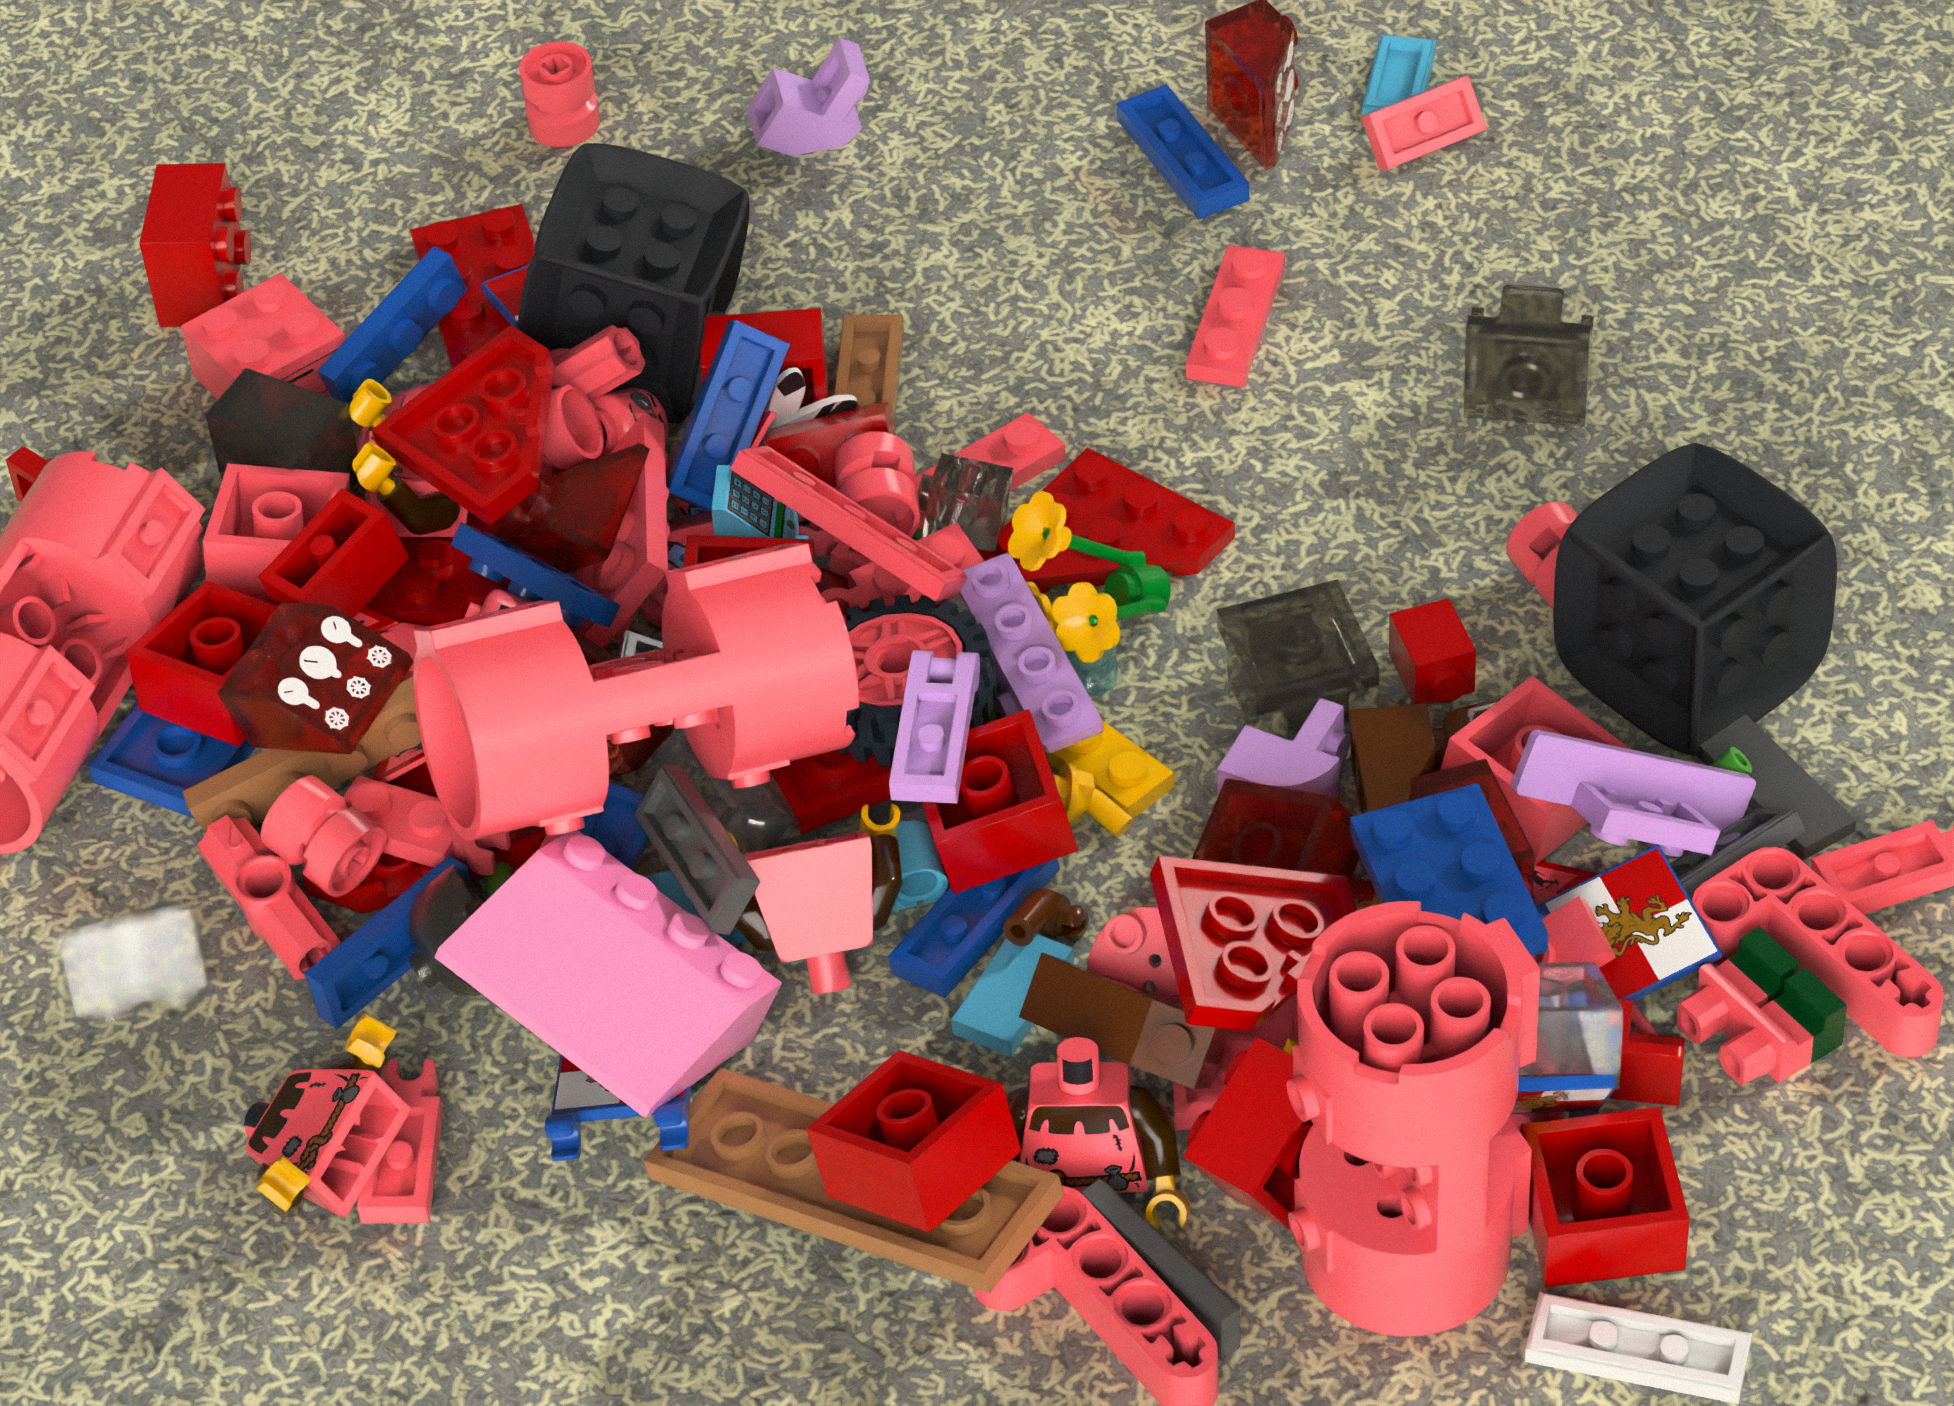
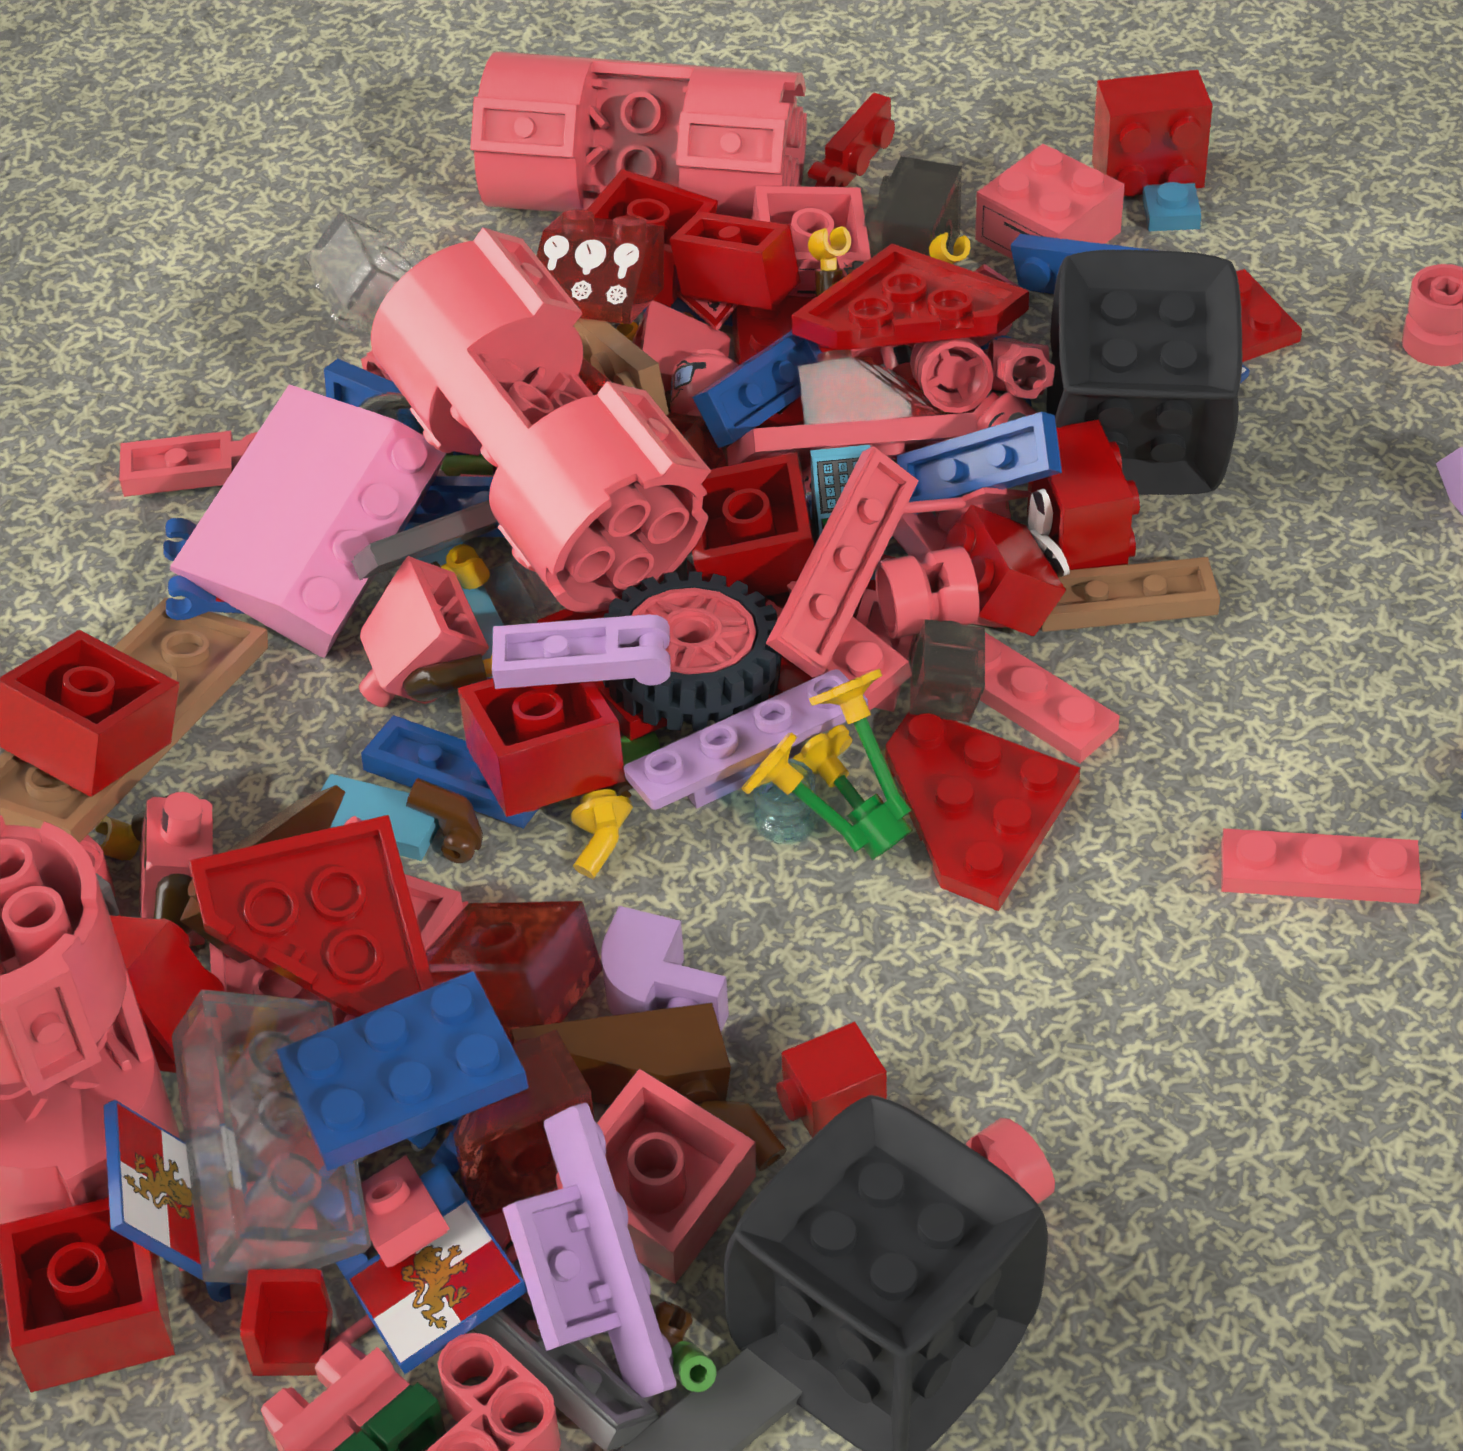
camera: 80 degrees right, 0 degrees up
(272, 259) = (1171, 207): none -> dark azure plate
(327, 1127) = (164, 404): torso -> none
(1118, 769) = (661, 847): yellow plate -> none
(1294, 652) = (794, 959): clear smoke panel -> none
(1528, 360) = (1266, 1073): clear smoke panel -> none

